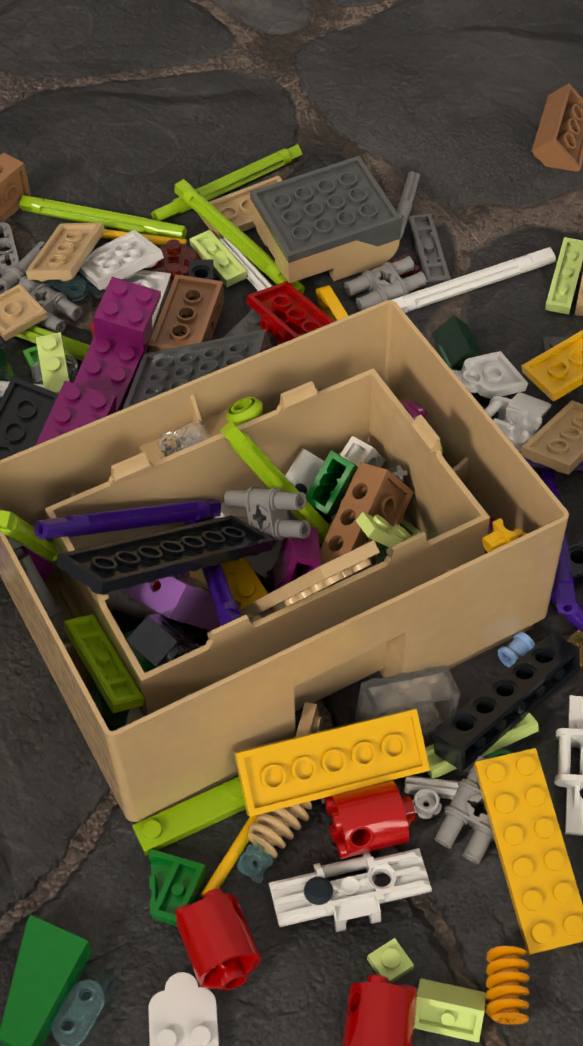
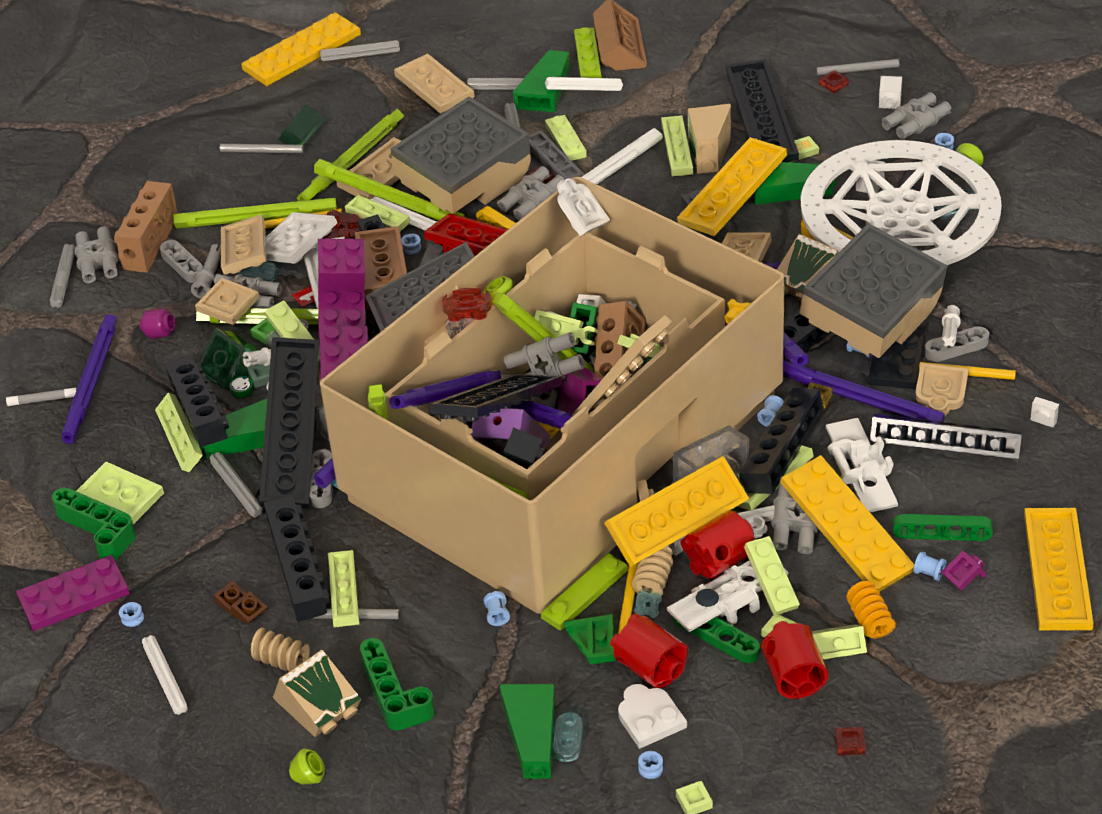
camera: 20 degrees left, 10 degrees down
(87, 800) = (496, 608): none -> light blue bush
(147, 147) = (262, 148): none -> light grey bar
(178, 425) = (467, 304): none -> clear red plate
(196, 136) = (302, 127): none -> clear green brick
(235, 303) = (411, 244): none -> light blue bush
(243, 50) = (300, 49): none -> yellow plate
(297, 69) = (359, 50): none -> light grey axle
(307, 477) = (561, 325): none -> yellowish green plate
(322, 932) = (731, 647): none -> green beam
(350, 126) = (433, 83): none -> tan plate
(379, 339) = (580, 206): none -> white plate
(406, 892) = (771, 575): none -> yellowish green plate
(414, 146) = (493, 83): none -> light grey axle
(454, 229) = (565, 137): none -> yellowish green plate
(460, 160) = (532, 91): none -> green slope
(499, 173) = (595, 84): none -> white axle
(522, 141) = (587, 53): none -> lime plate

